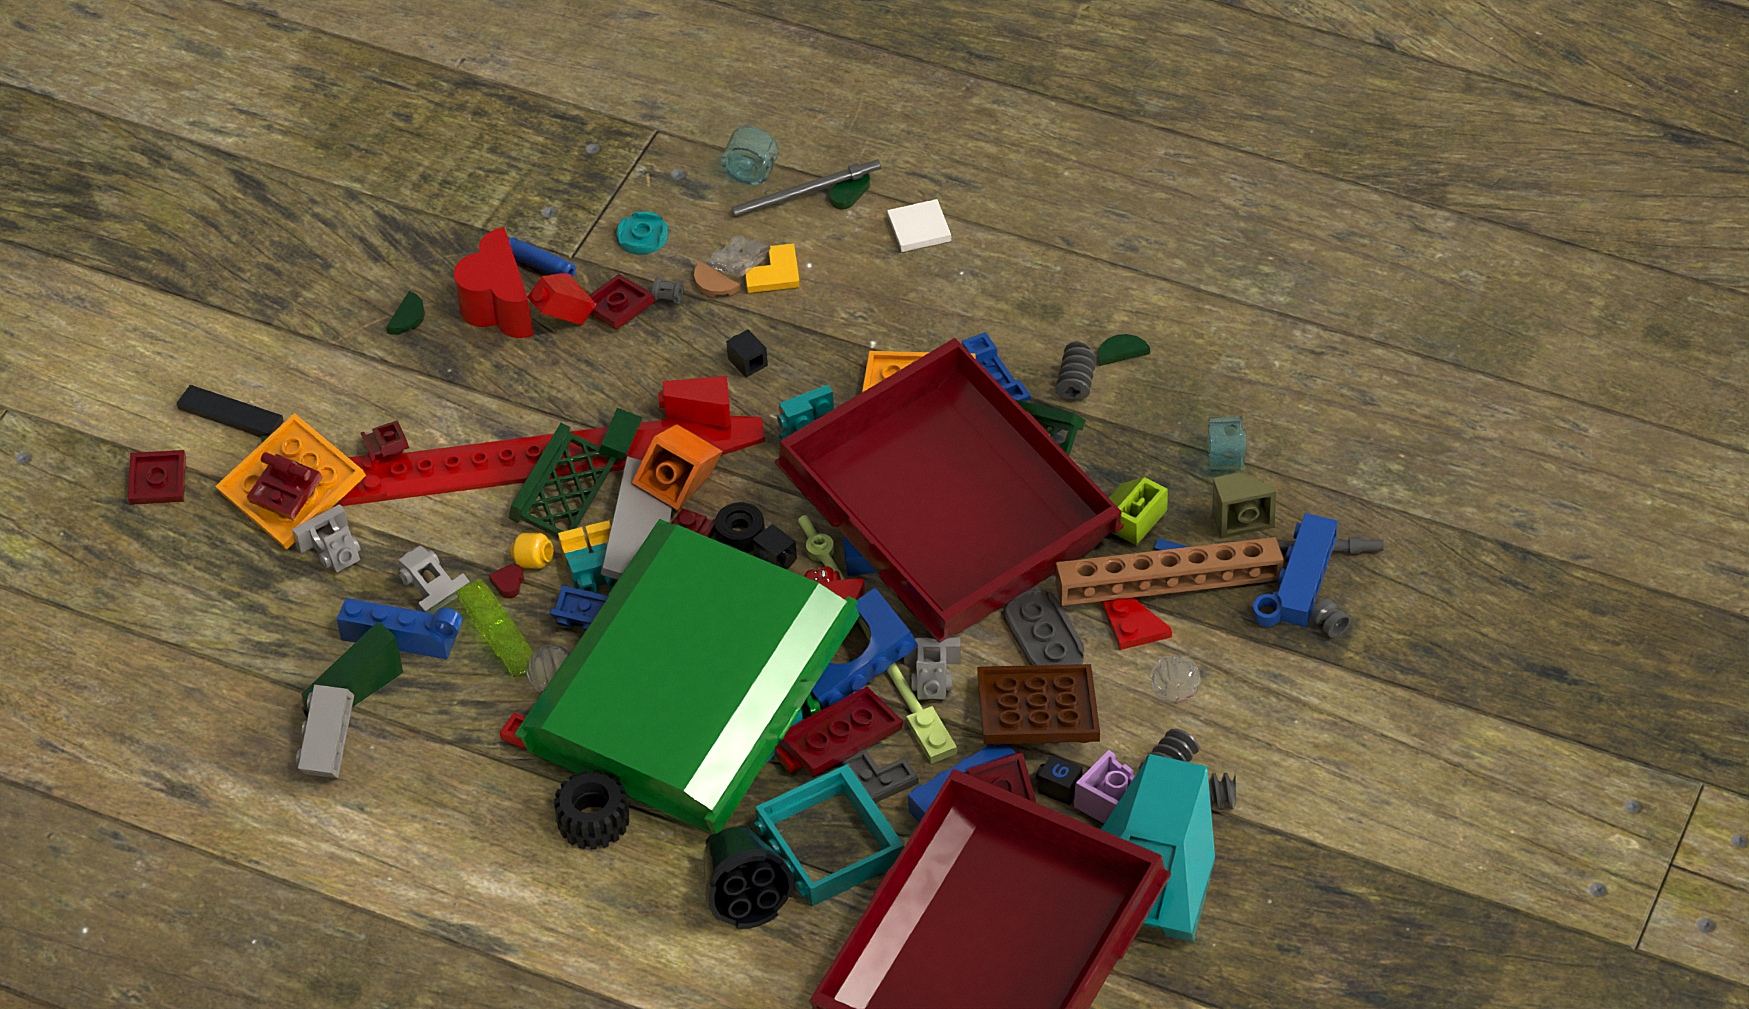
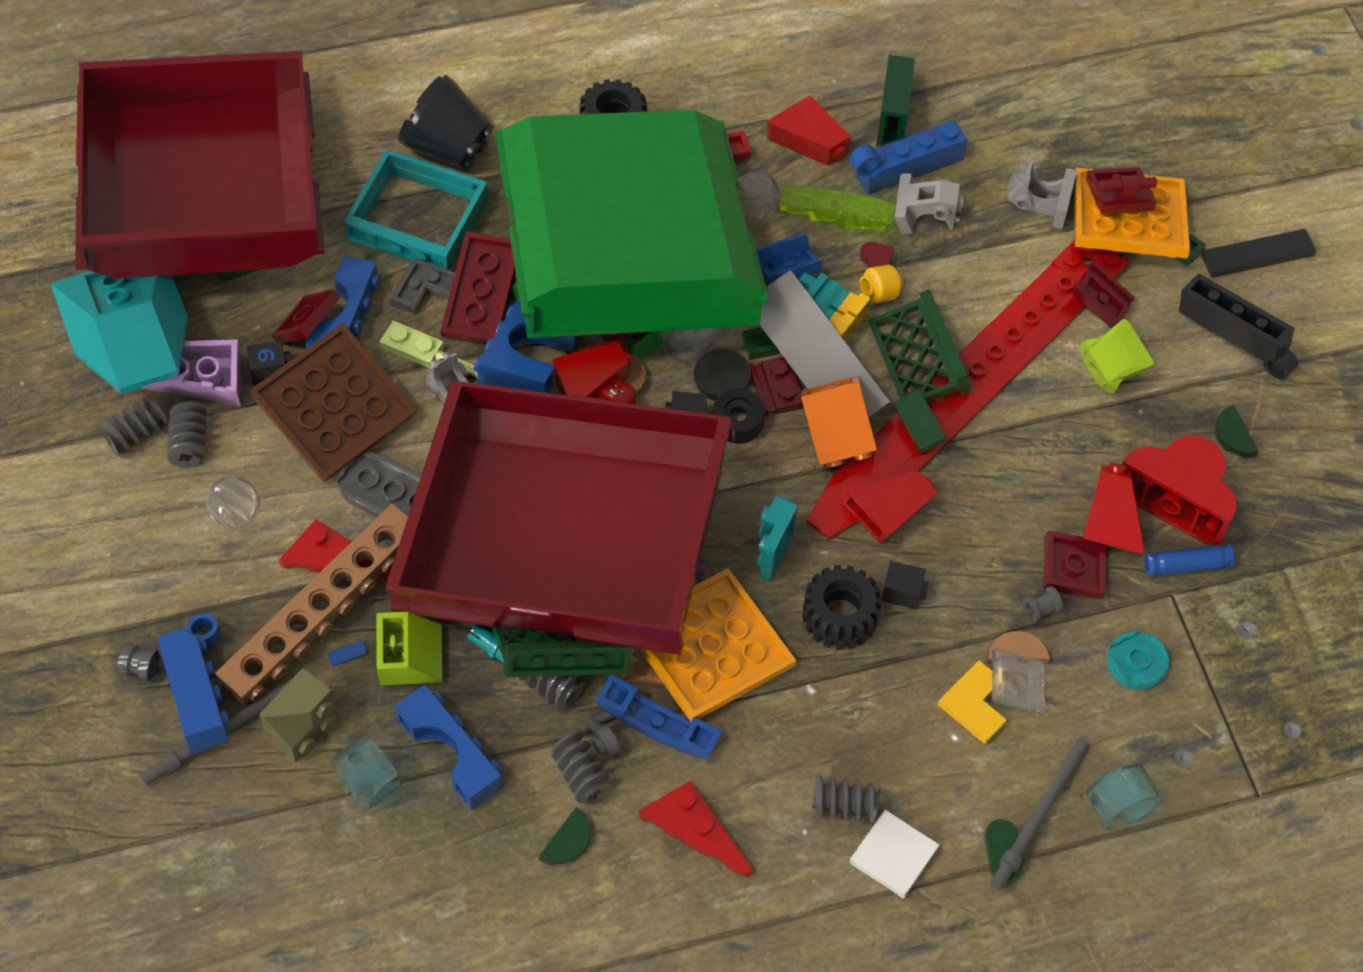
camera: 135 degrees right, 10 degrees up
(157, 477) = (1238, 163): dark red plate -> none
(320, 360) = (1240, 324): none -> black hinge
(325, 731) = (863, 41): light grey brick -> none
(430, 401) = (1115, 356): none -> lime piece
(447, 703) = (810, 132): none -> red slope
(805, 359) = (847, 586): none -> black tyre
(921, 260) = (846, 799): none -> dark grey piece
(1030, 313) = (690, 819): none -> red wing
(1045, 382) = (605, 740): none -> dark grey plate
(1152, 416) = (426, 718): none -> blue arch

